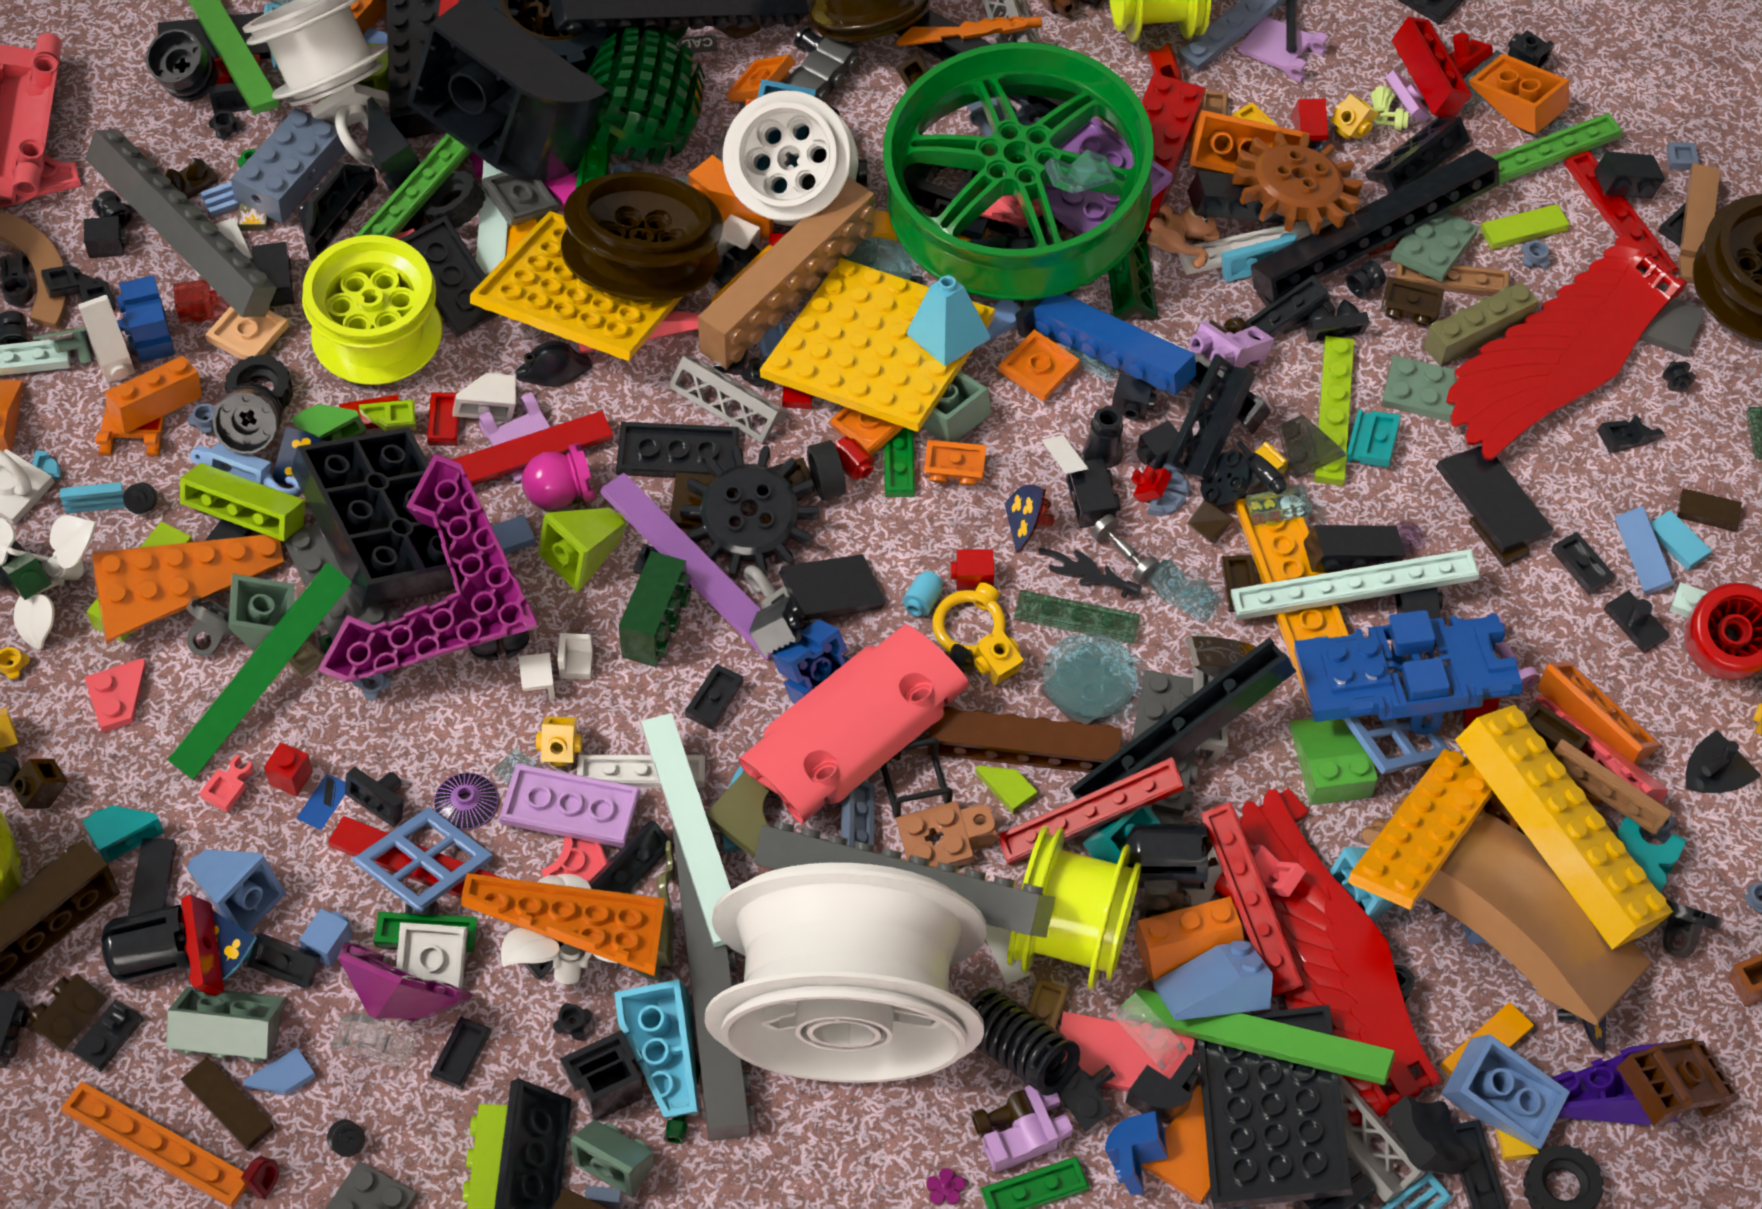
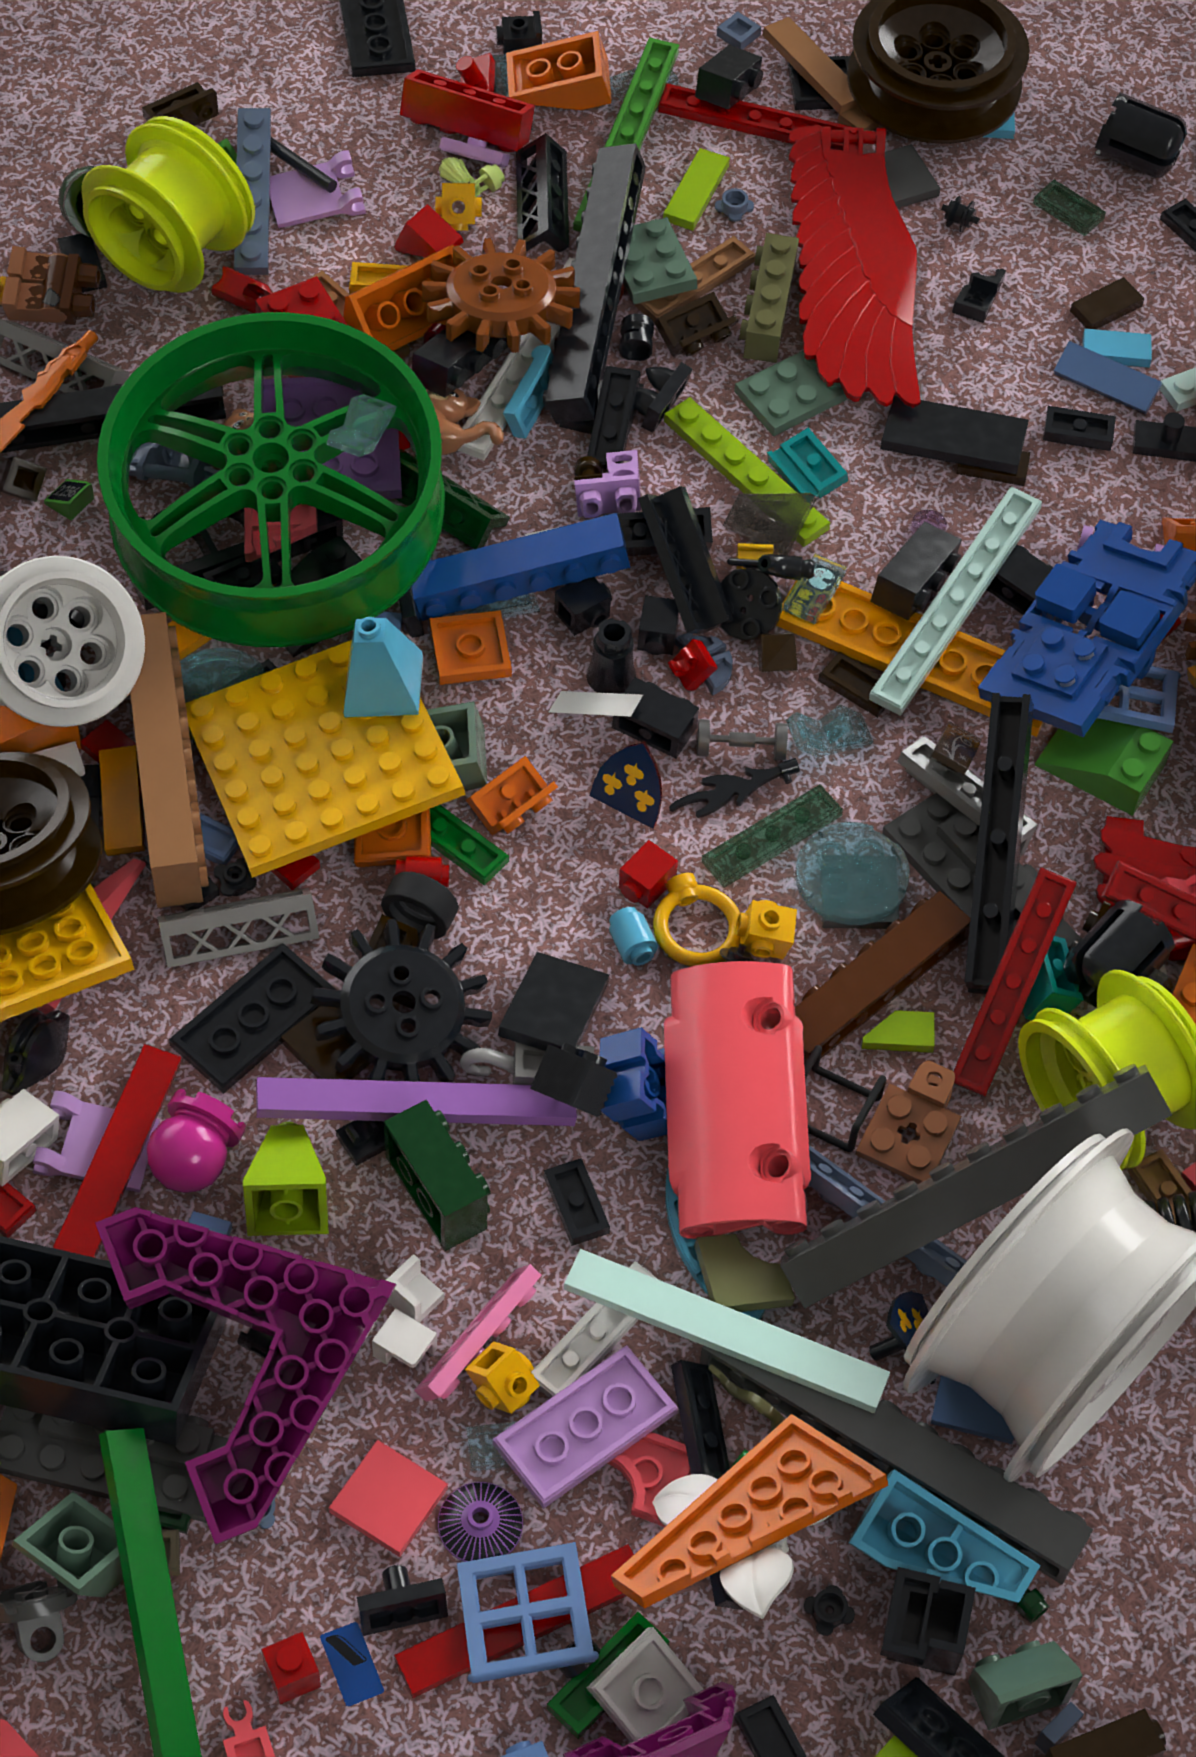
camera: 50 degrees left, 0 degrees up
(437, 743) = (388, 1498): none -> coral tile
(593, 709) = (489, 1322): none -> bright pink plate

